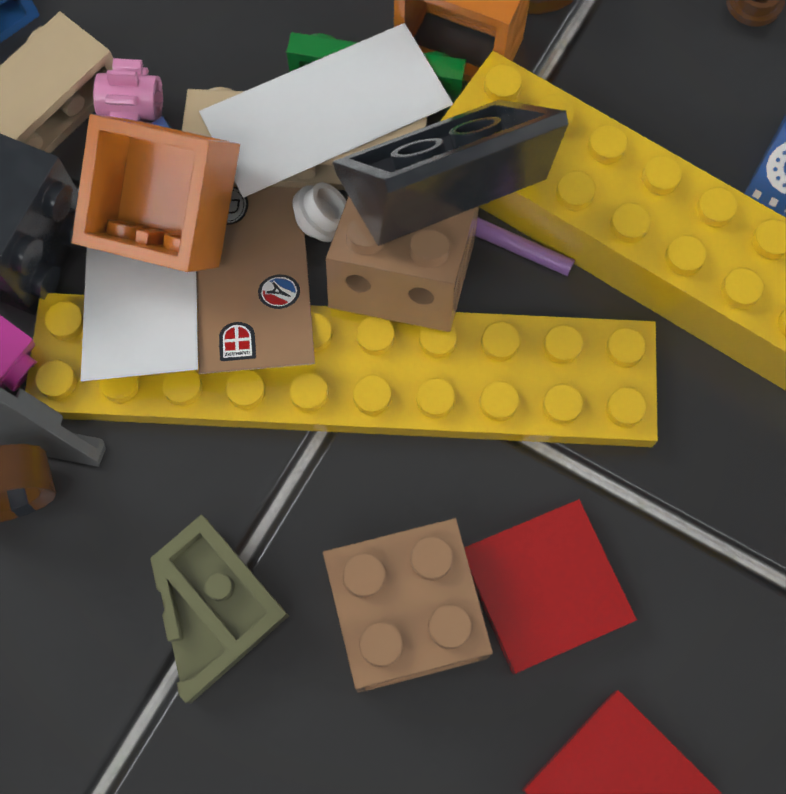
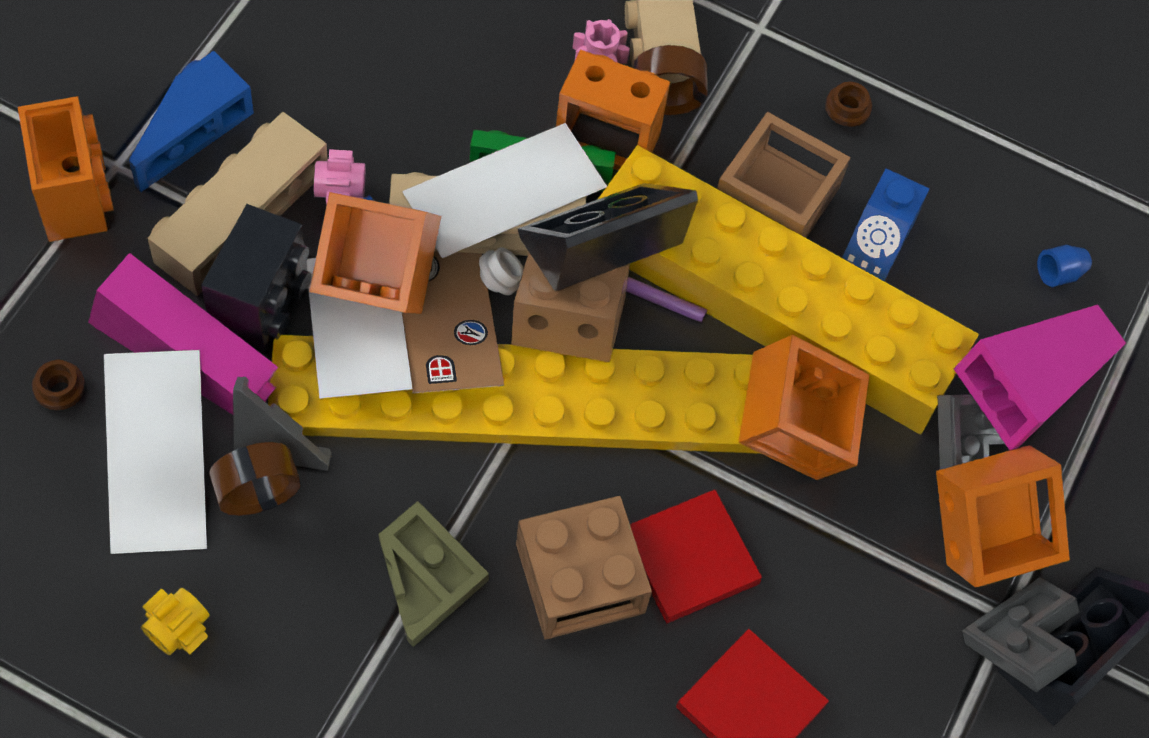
camera: 10 degrees left, 10 degrees down
(669, 99) = (779, 183): none -> medium nougat piece
(699, 397) = (804, 408): none -> orange piece

